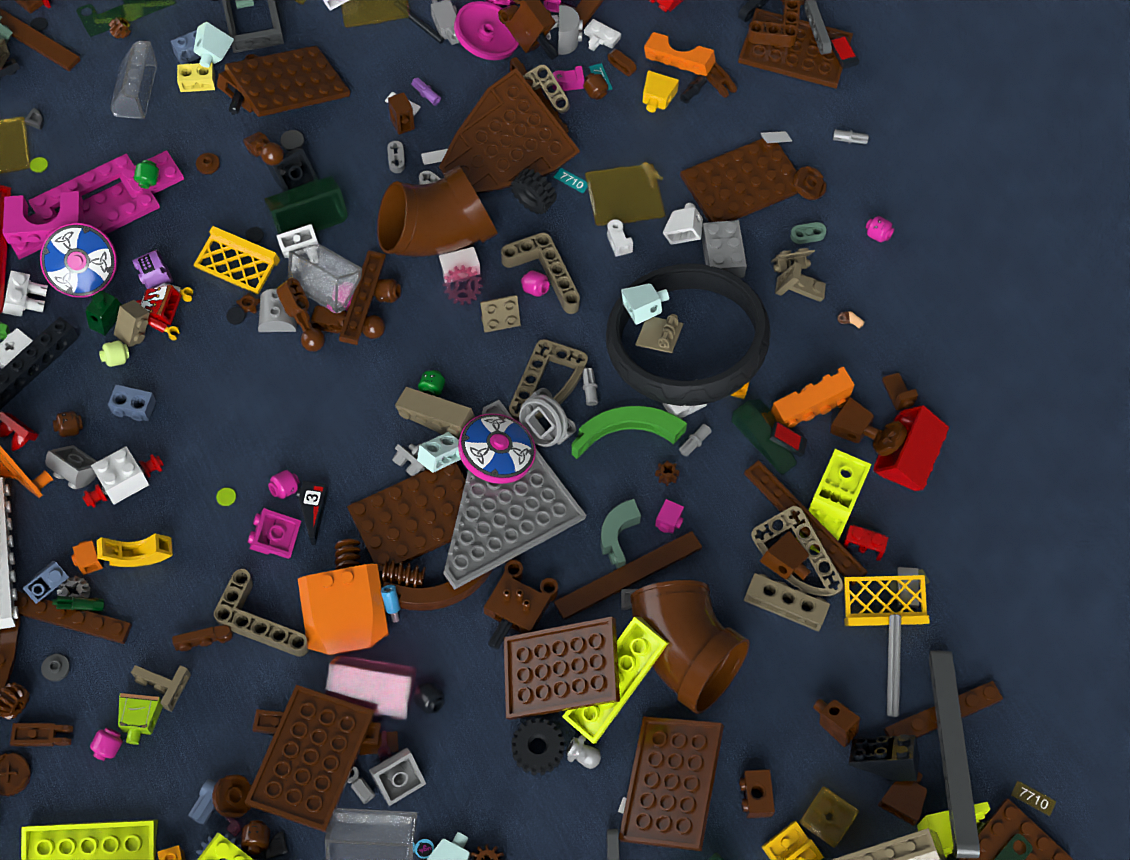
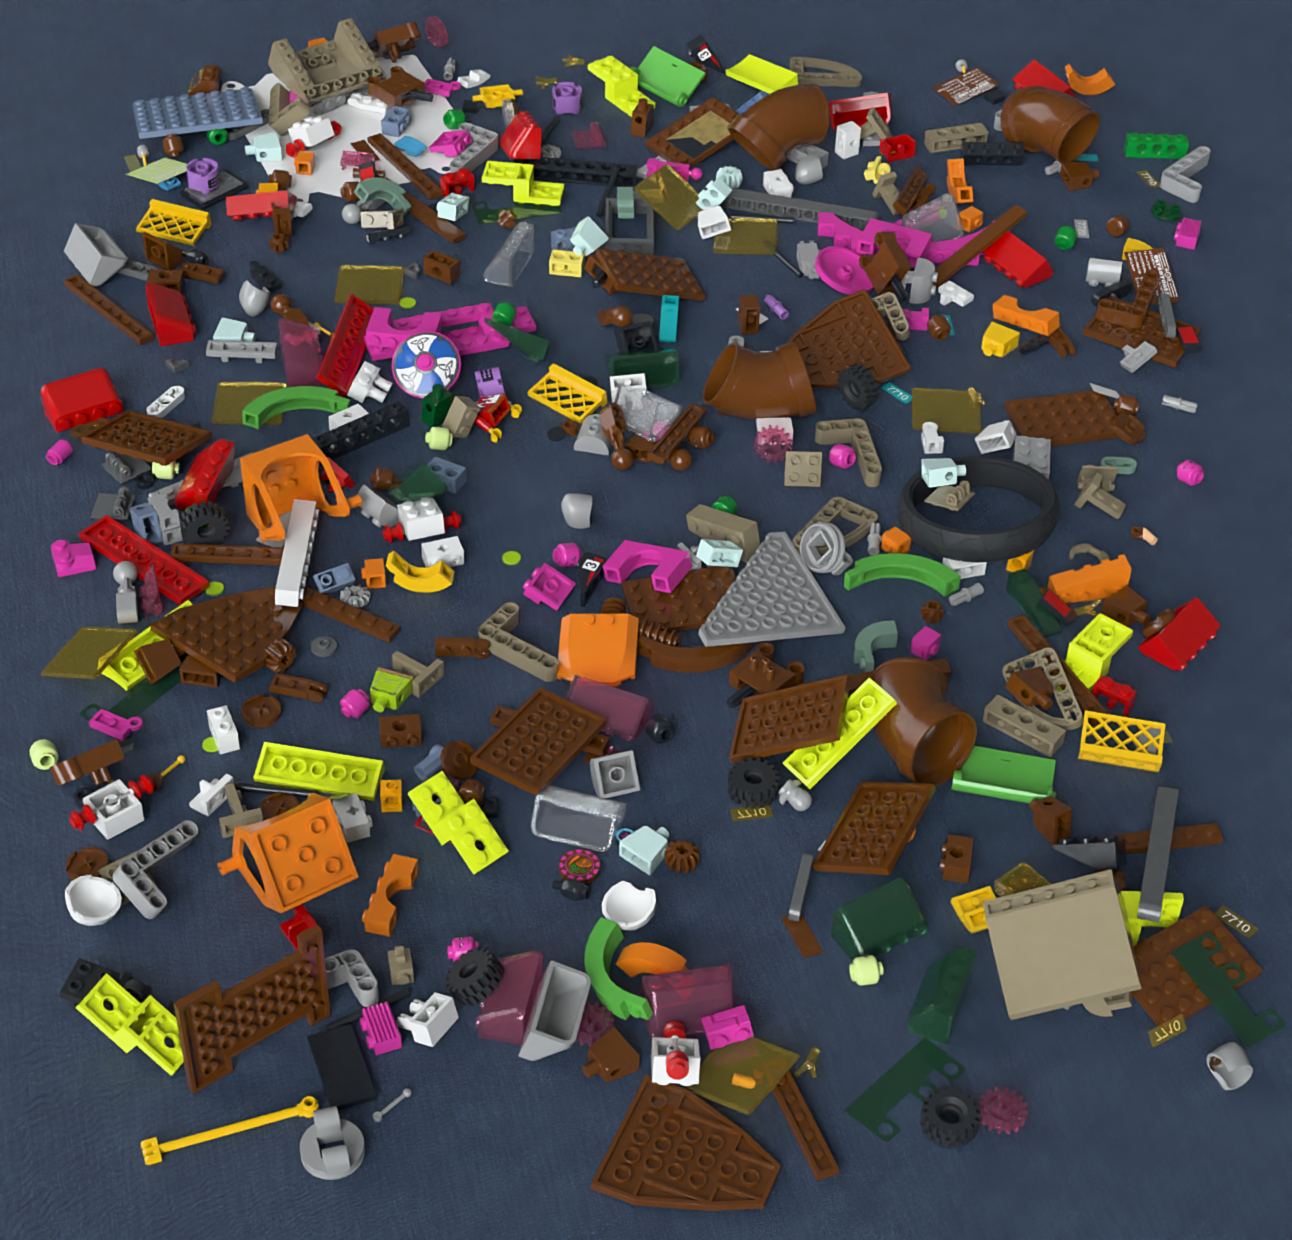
camera: 15 degrees right, 20 degrees down
(57, 23) = (453, 206): none -> light aqua brick
(64, 112) = (441, 267): none -> reddish brown brick
(77, 603) = (358, 601): dark green piece -> none
(105, 437) = (416, 484): none -> clear green windscreen
(150, 766) = (400, 731): none -> reddish brown brick
(159, 505) = (447, 550): none -> white brick
(181, 204) = (528, 344): none -> clear green wedge
(207, 163) = (560, 326): reddish brown piece -> none
(281, 421) = (577, 509): none -> light grey piece
(319, 134) = (669, 318): none -> teal slope
(353, 469) = (630, 555): none -> dark pink arch
(360, 787) = (577, 779): light grey bar -> none
(391, 601) = (643, 651): dark azure piece -> none
(496, 448) = (773, 559): dish -> none
(539, 782) = (740, 814): none -> clear yellow sticker
(612, 388) = (896, 541): none -> orange brick
(622, 62) = (968, 315): reddish brown beam -> none
(784, 672) = (1005, 775): none -> bright green door
(798, 84) = (1137, 356): none -> light grey hinge
(800, 152) = (1126, 404): none -> reddish brown head
(816, 356) = (1085, 548): none -> dark tan piece
(816, 430) = (1088, 609): none -> clear yellow bar
(894, 649) = (1118, 788): light grey axle -> none
(898, 392) = (1178, 593): reddish brown bracket -> none

